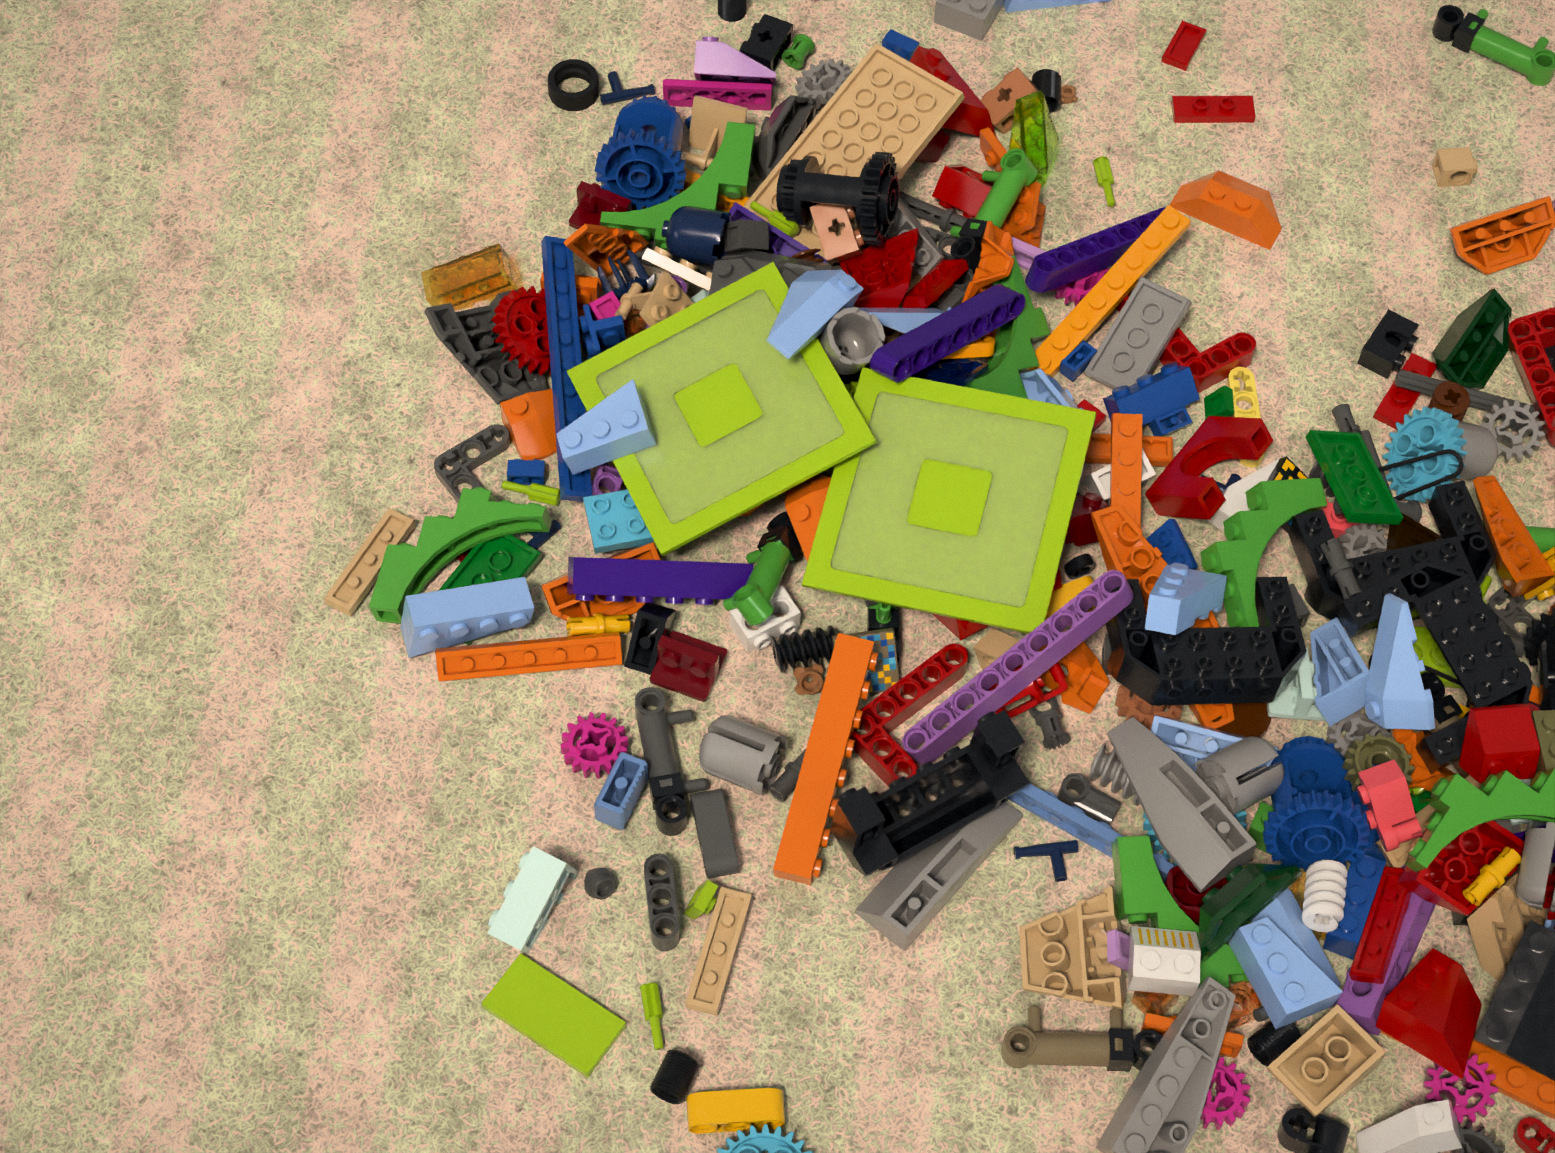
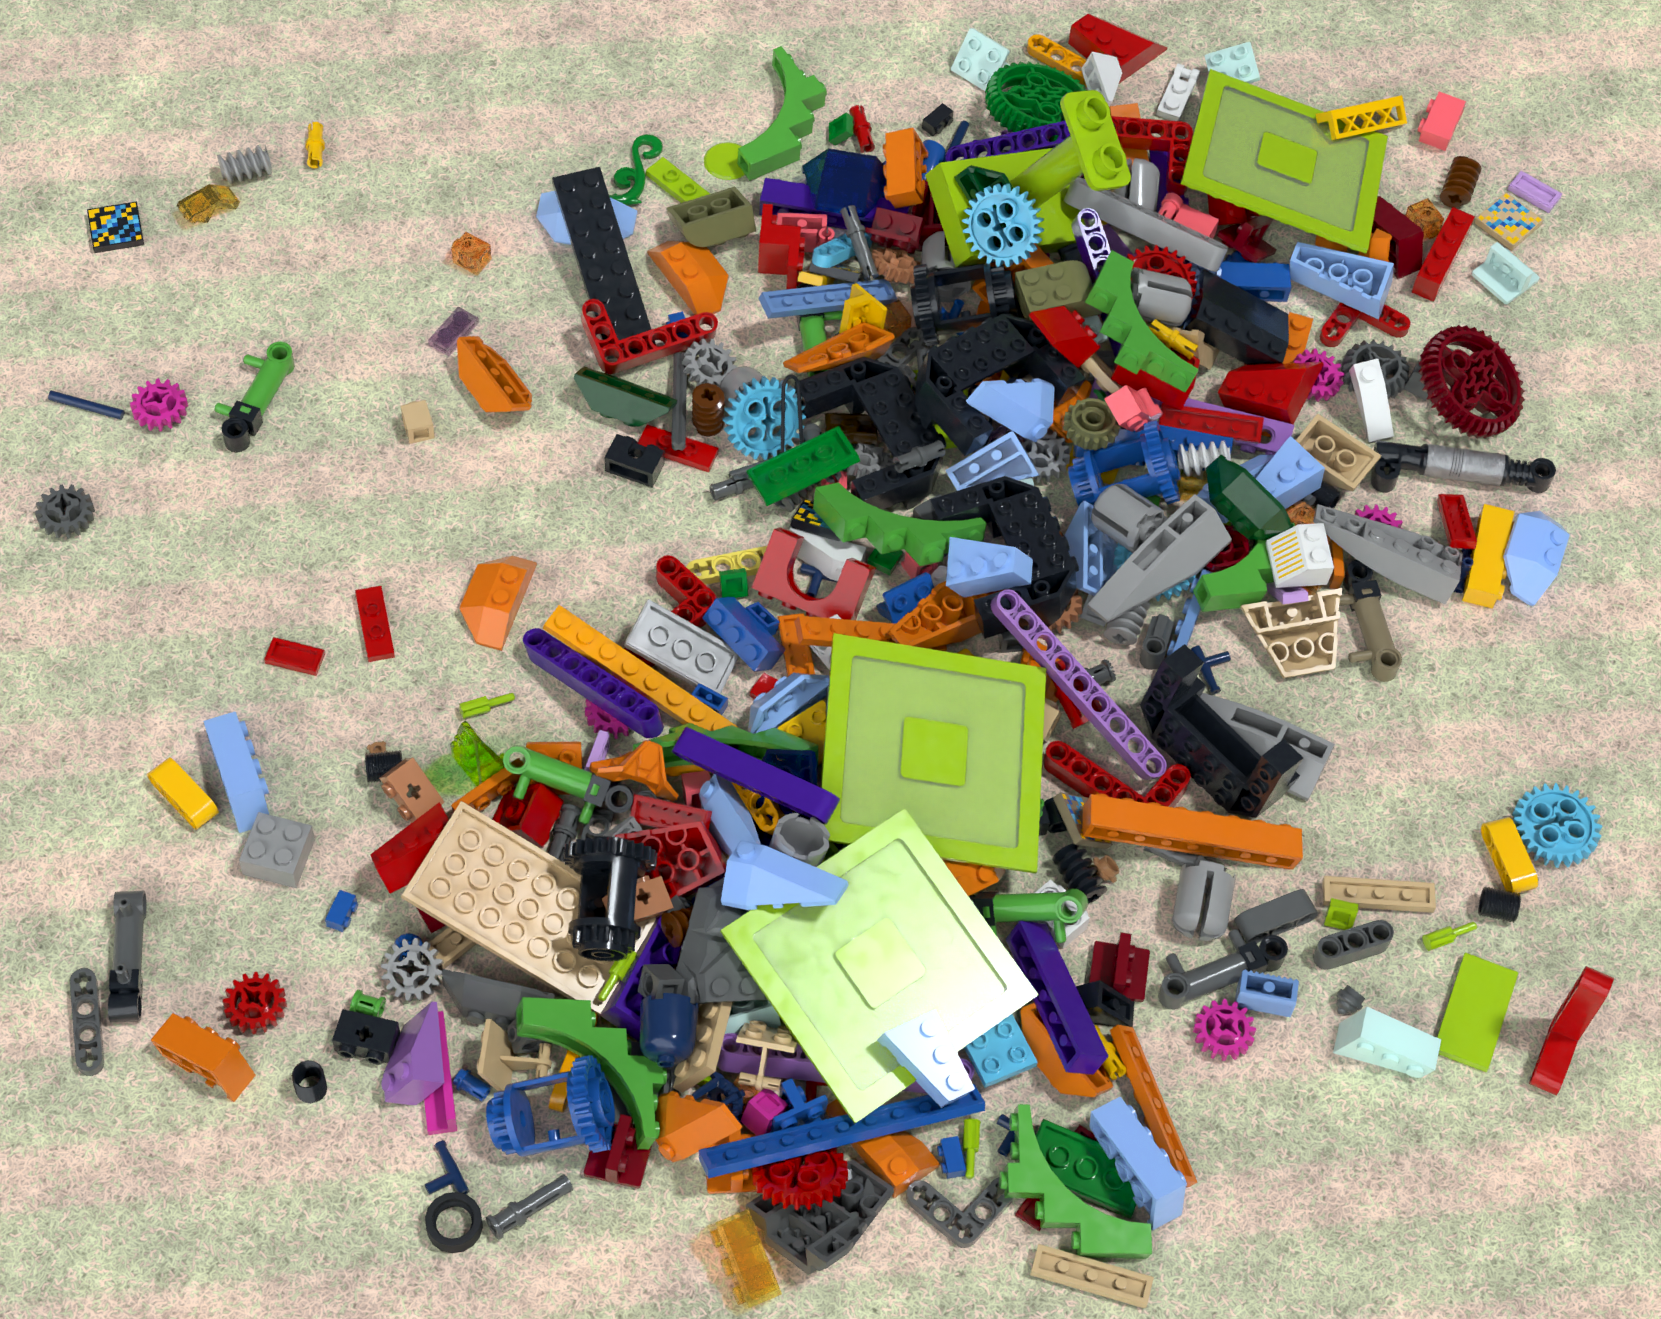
camera: 105 degrees left, 0 degrees up
(486, 1077) = (1568, 1027): none -> red beam
(569, 129) = (518, 1212): none -> dark grey pin

